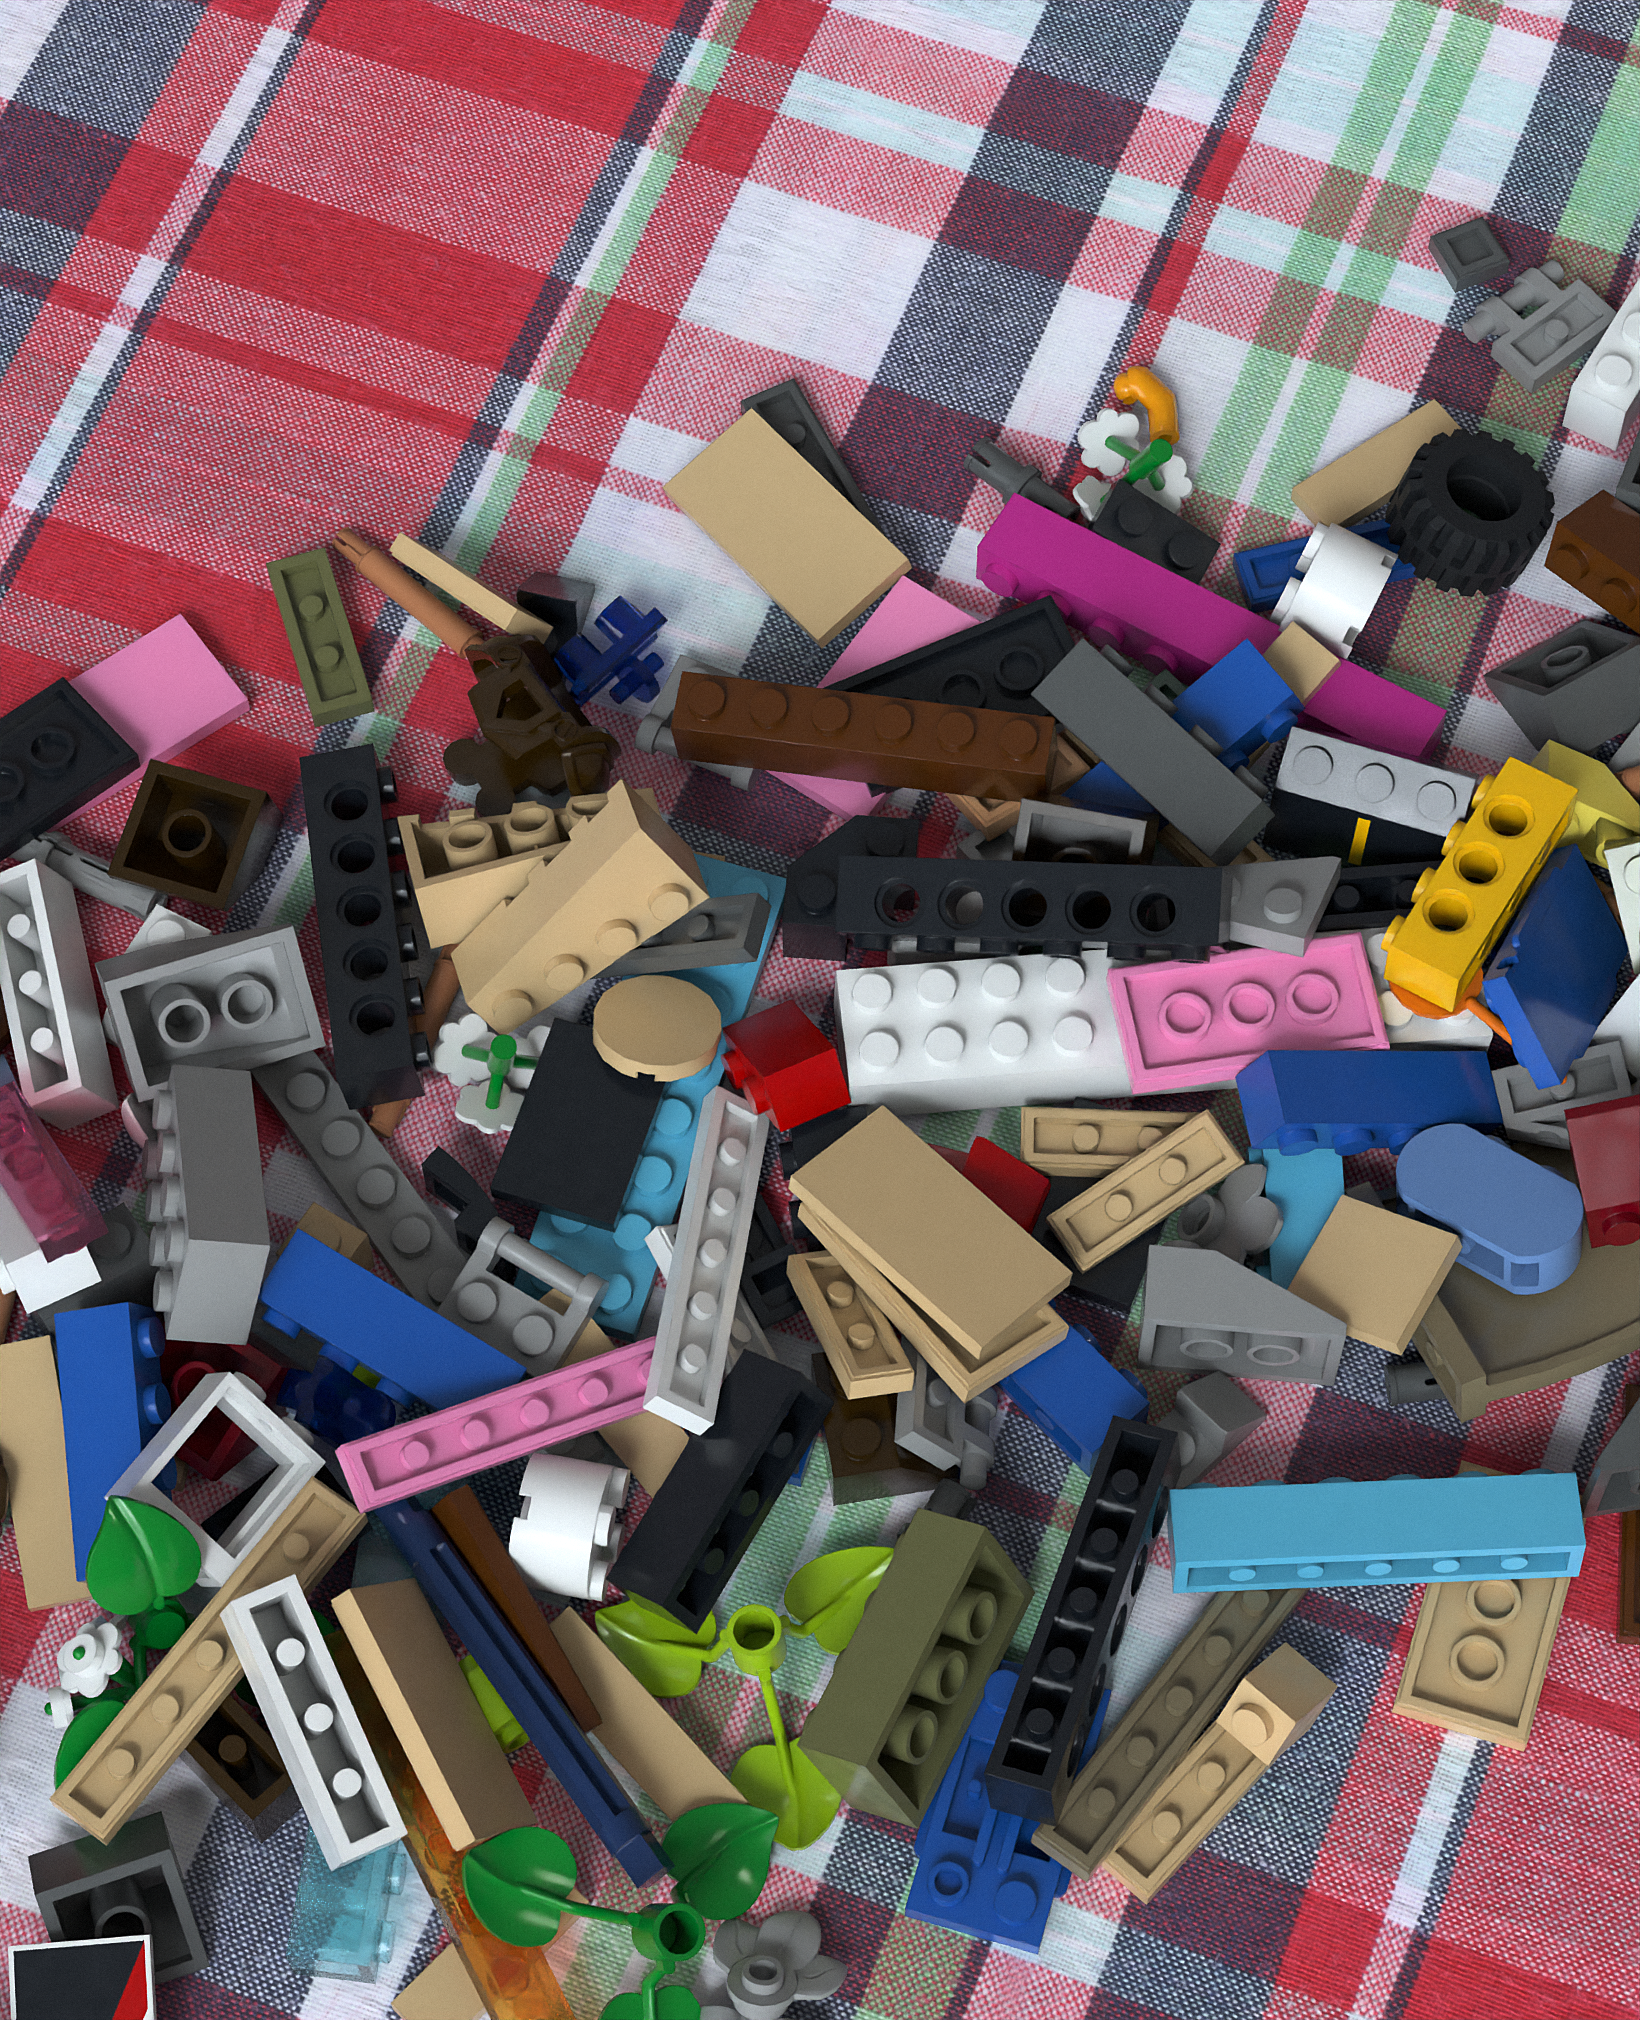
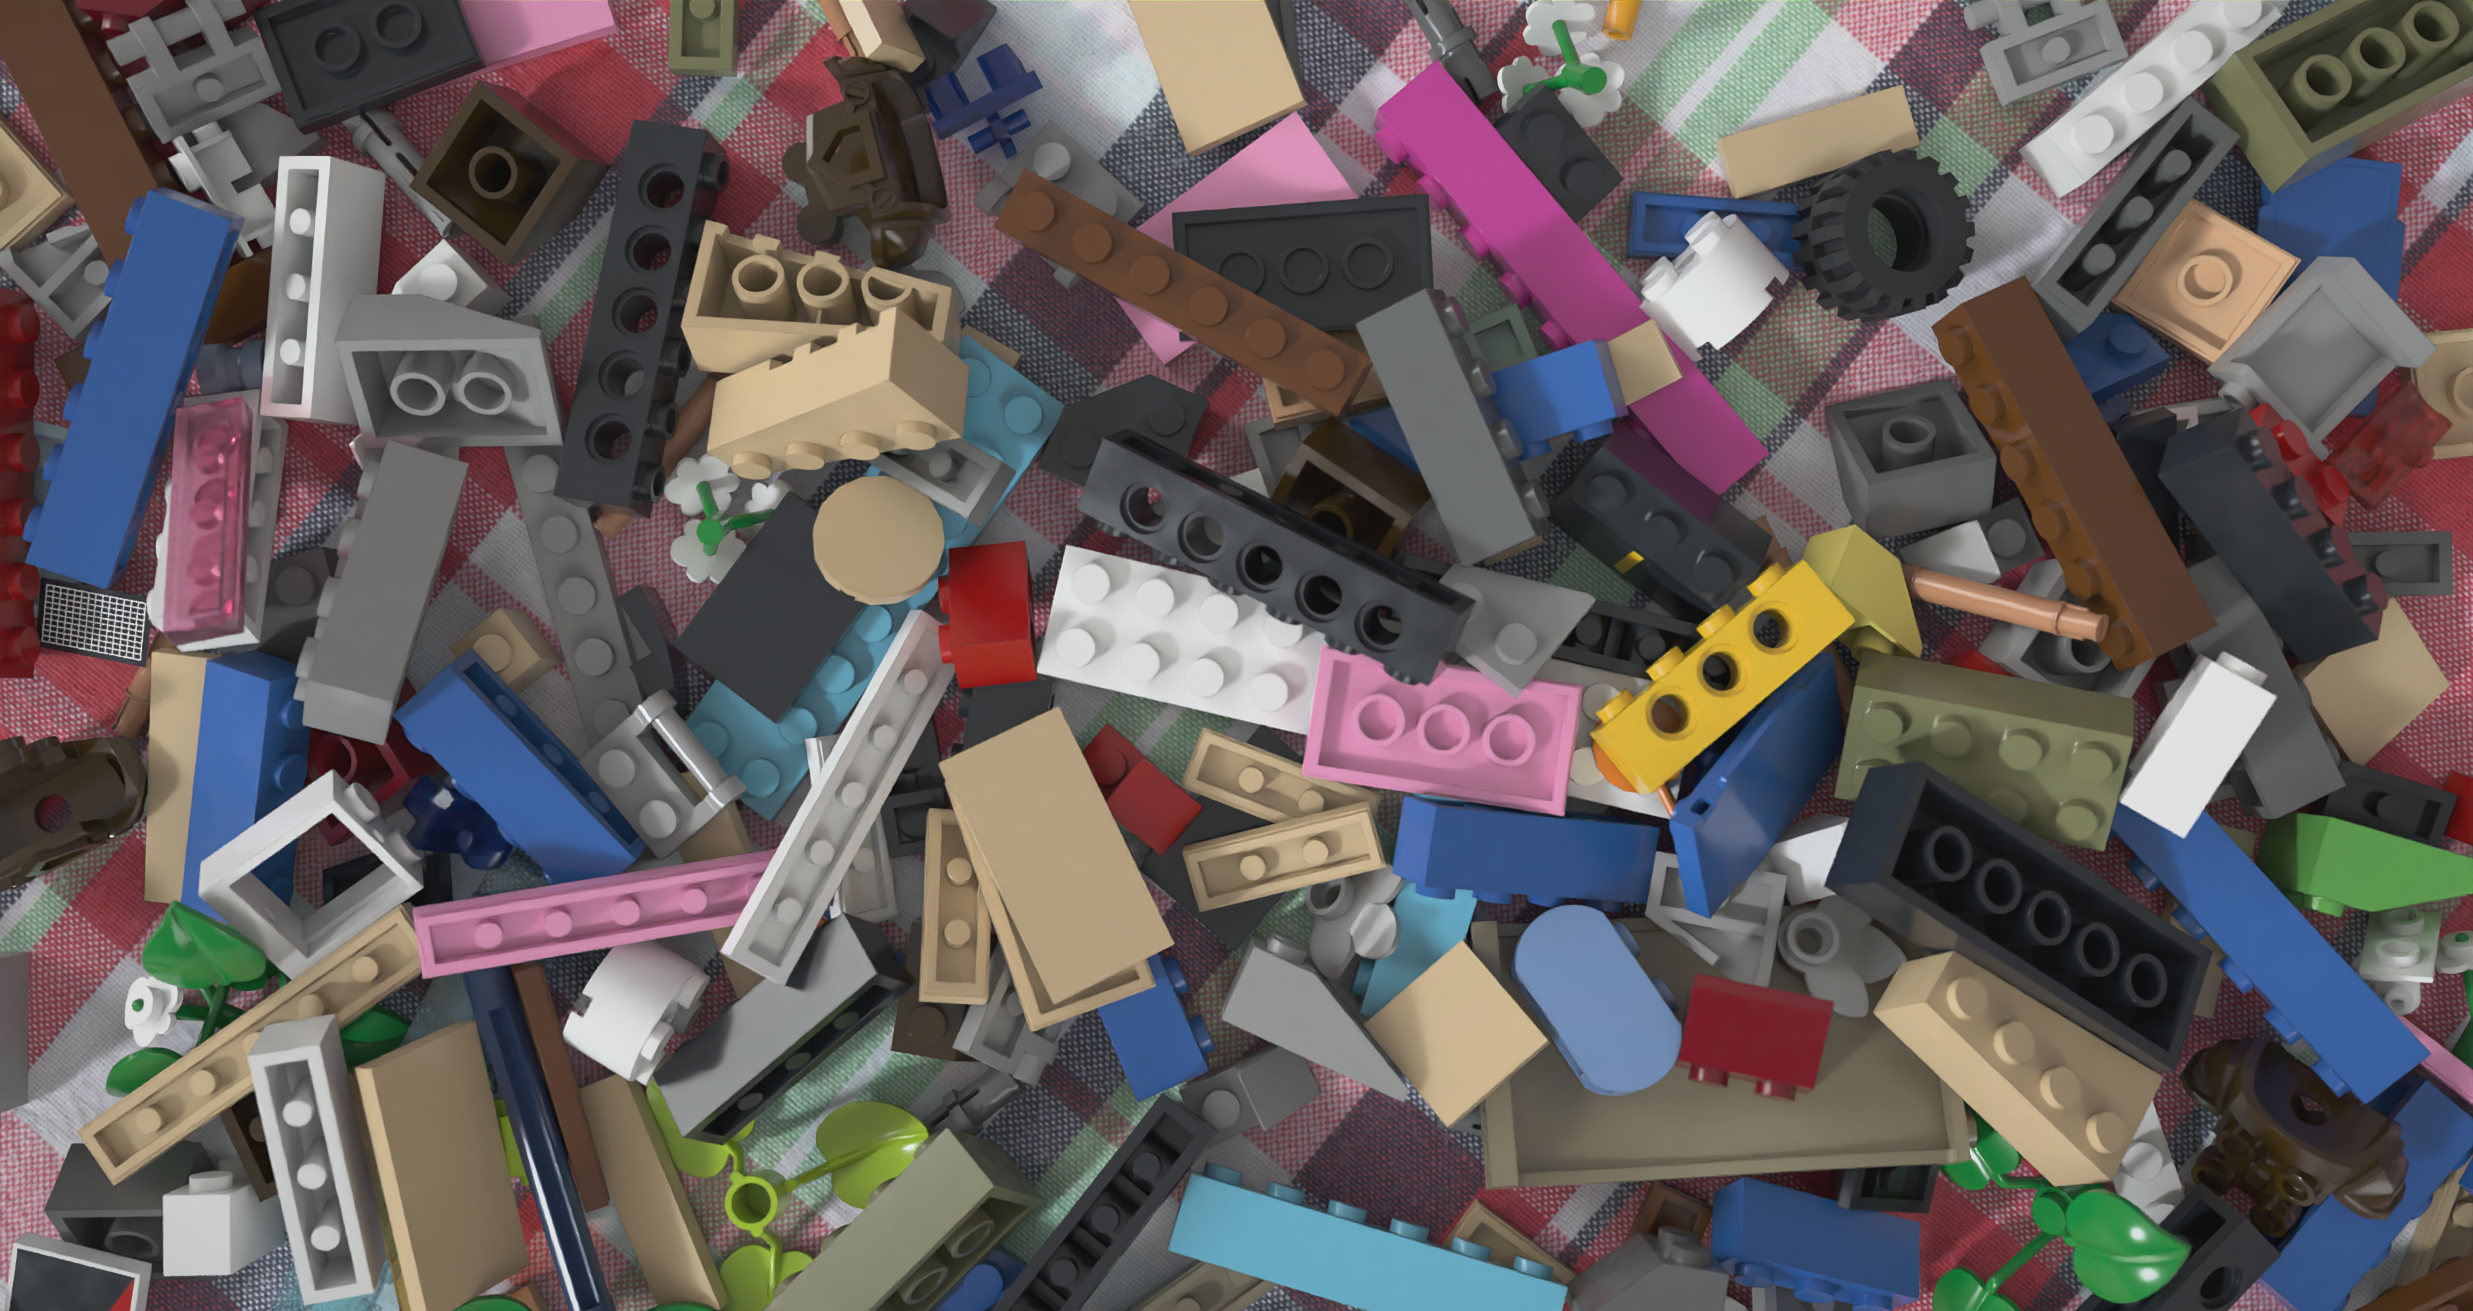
camera: 15 degrees right, 25 degrees up
(214, 1863) = (218, 1223): none -> white brick

